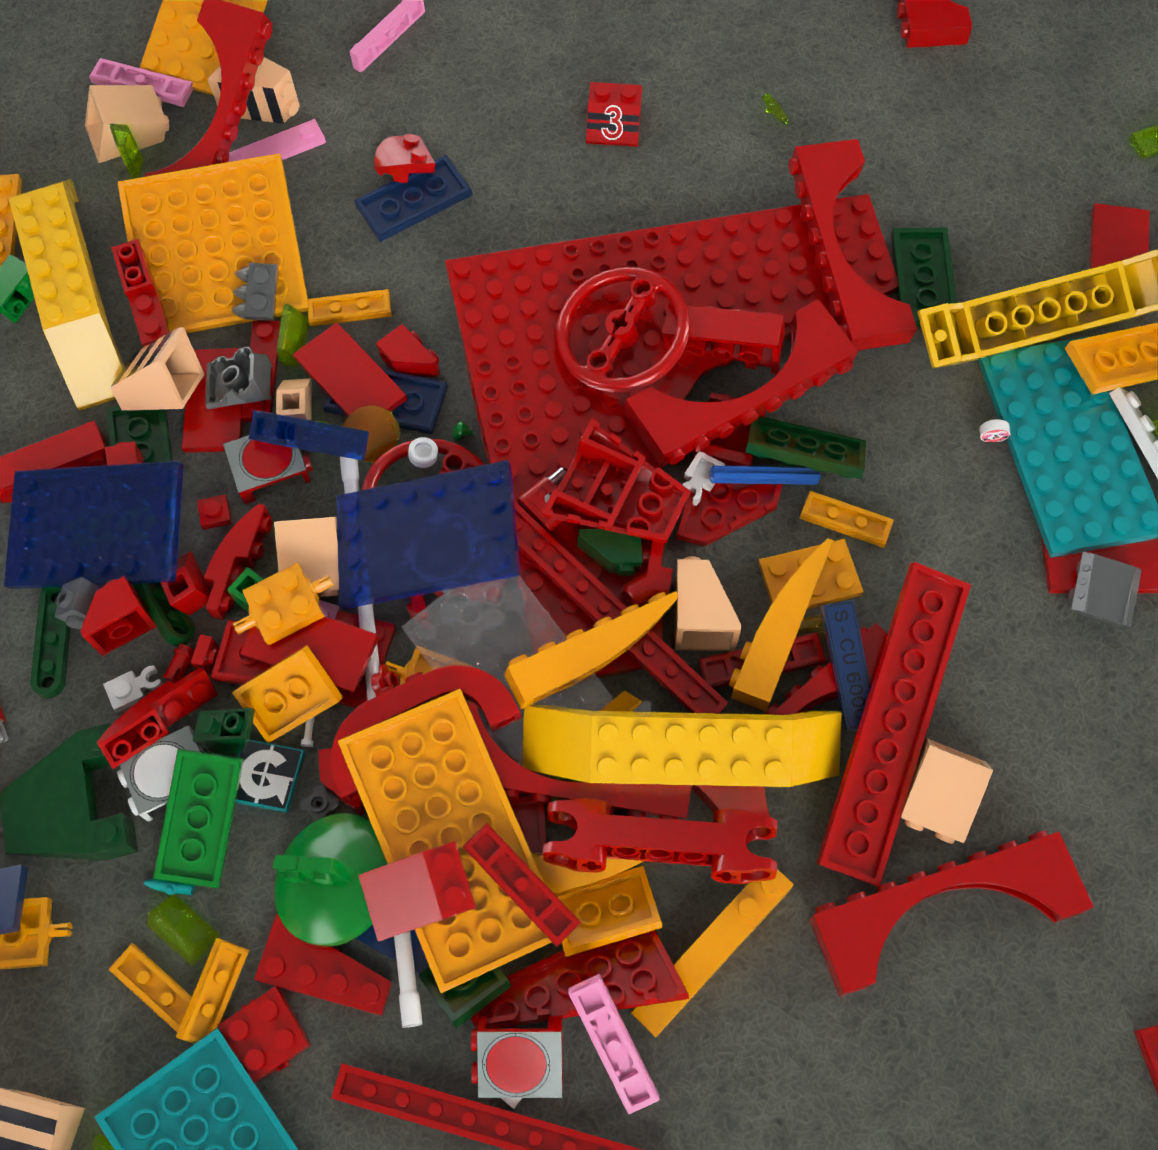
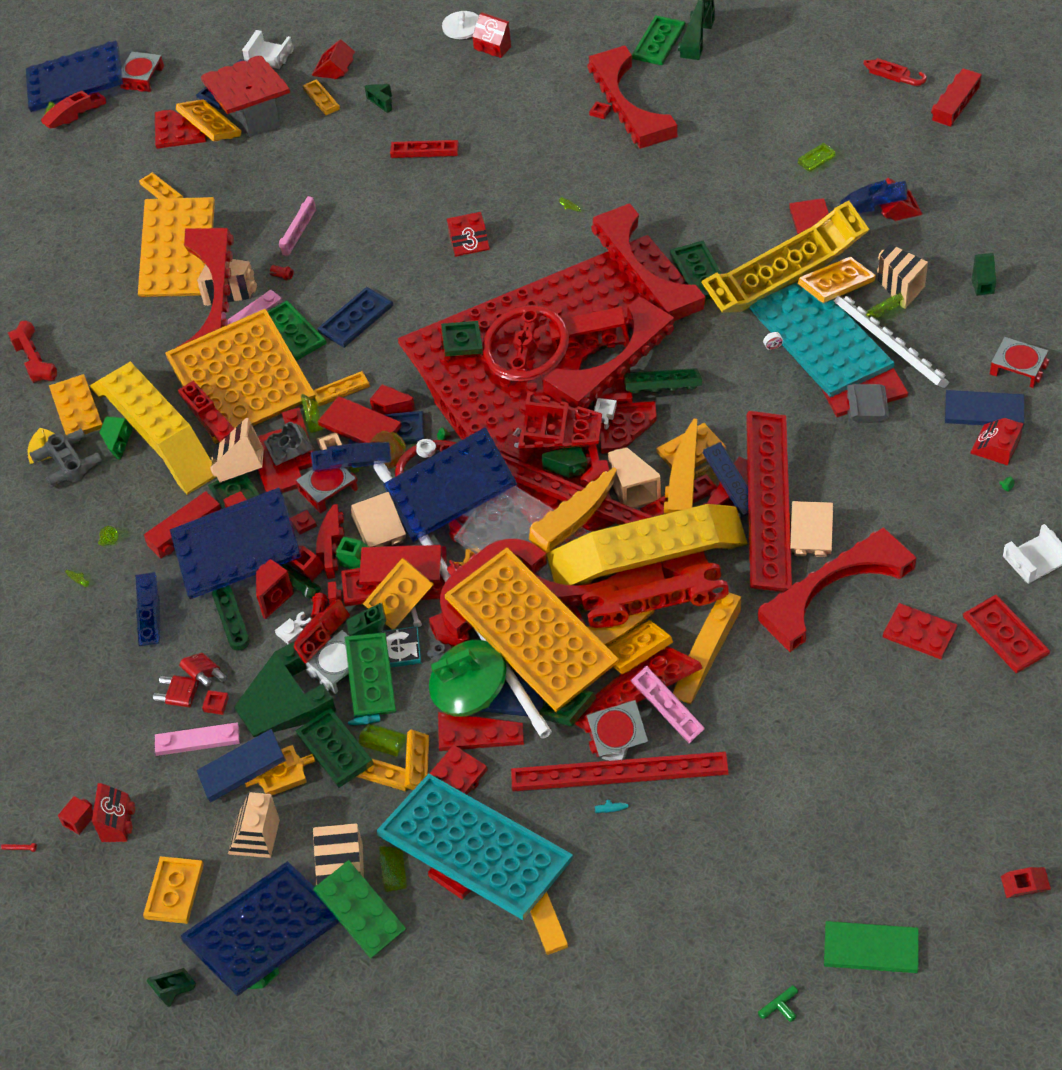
camera: 15 degrees left, 15 degrees down
(75, 601) = (242, 588): dark grey brick -> none
(103, 927) = (334, 747): none -> dark green plate
(128, 106) = (142, 323): light nougat slope -> none
(128, 149) = (154, 337): clear neon green slope -> none
(168, 88) = (143, 299): bright pink plate -> none
(258, 292) = (280, 393): dark grey plate -> none
(283, 603) = (376, 545): light orange plate -> none
(319, 192) = (296, 330): none -> green tile
(344, 98) = (285, 273): none -> red pin
(403, 156) = (340, 294): slope -> none
(417, 891) = (524, 654): slope -> none
(521, 884) = (582, 636): red plate -> none
(533, 291) = (461, 338): none -> dark green plate
(763, 475) = (642, 400): blue axle -> none
(846, 519) = (701, 412): light orange tile -> none
(1057, 1037) = (920, 631): none -> red plate

